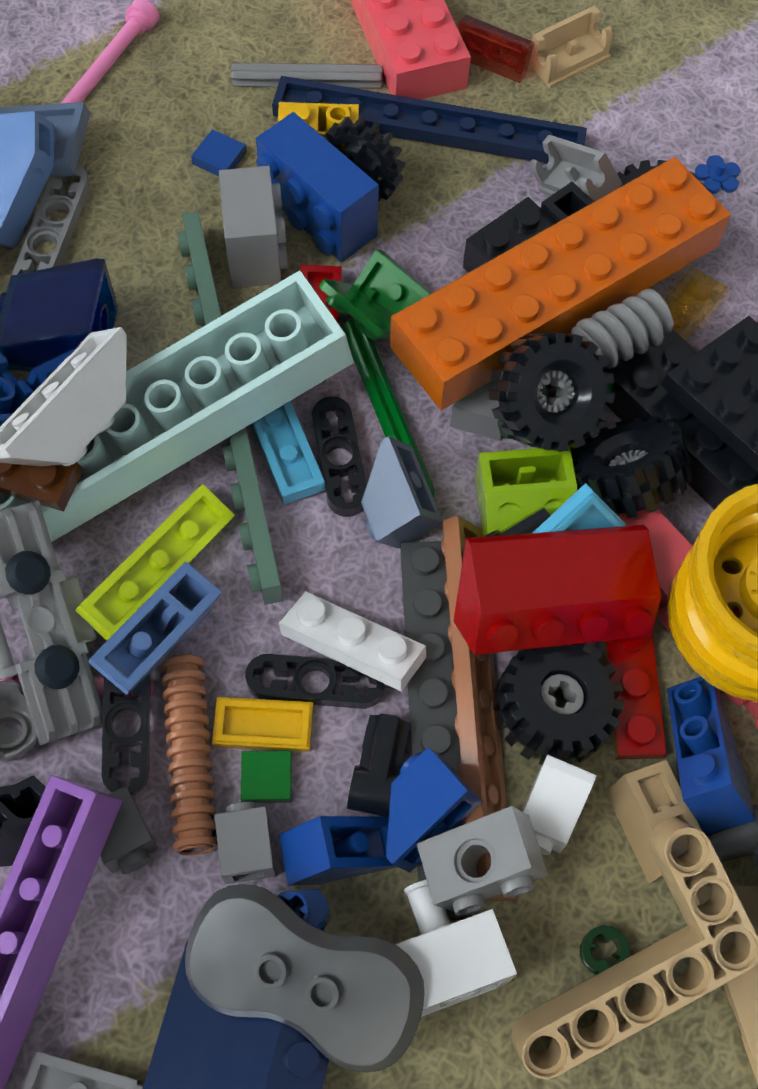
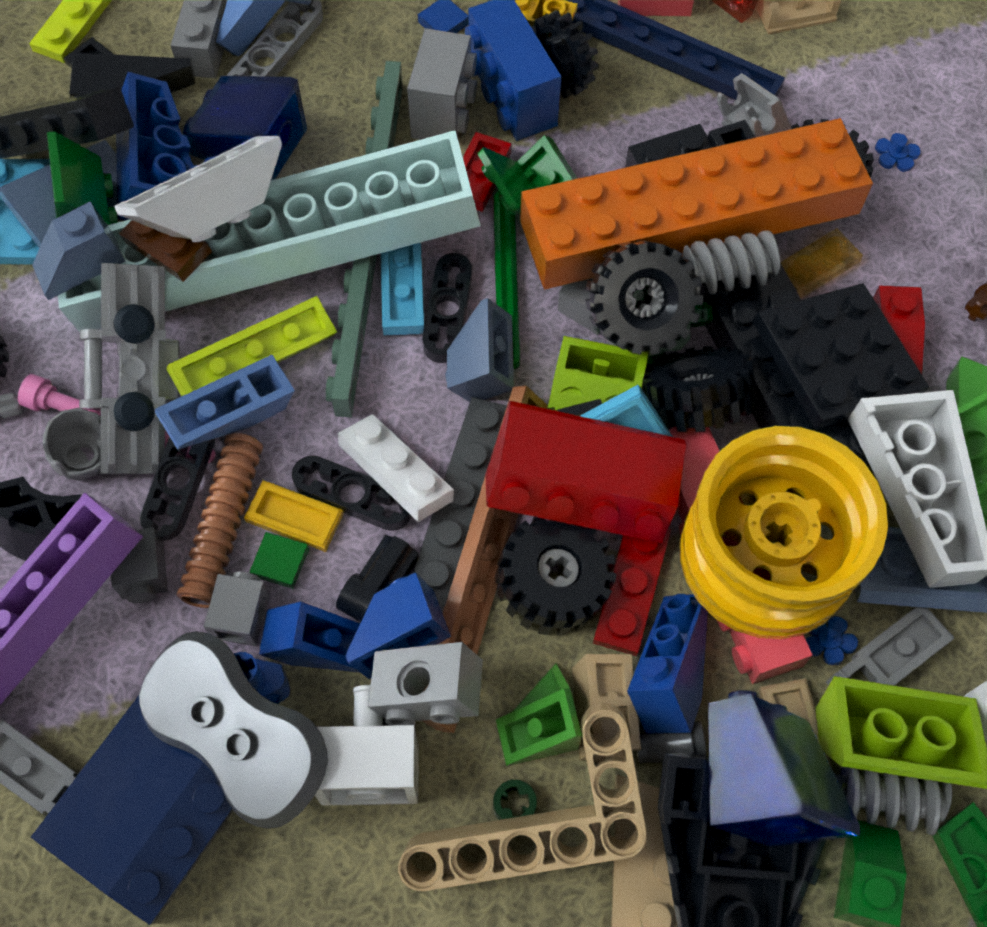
camera: 20 degrees right, 0 degrees up
(557, 802) = (513, 661): white slope -> none
(600, 855) = (541, 723): none -> bright green slope

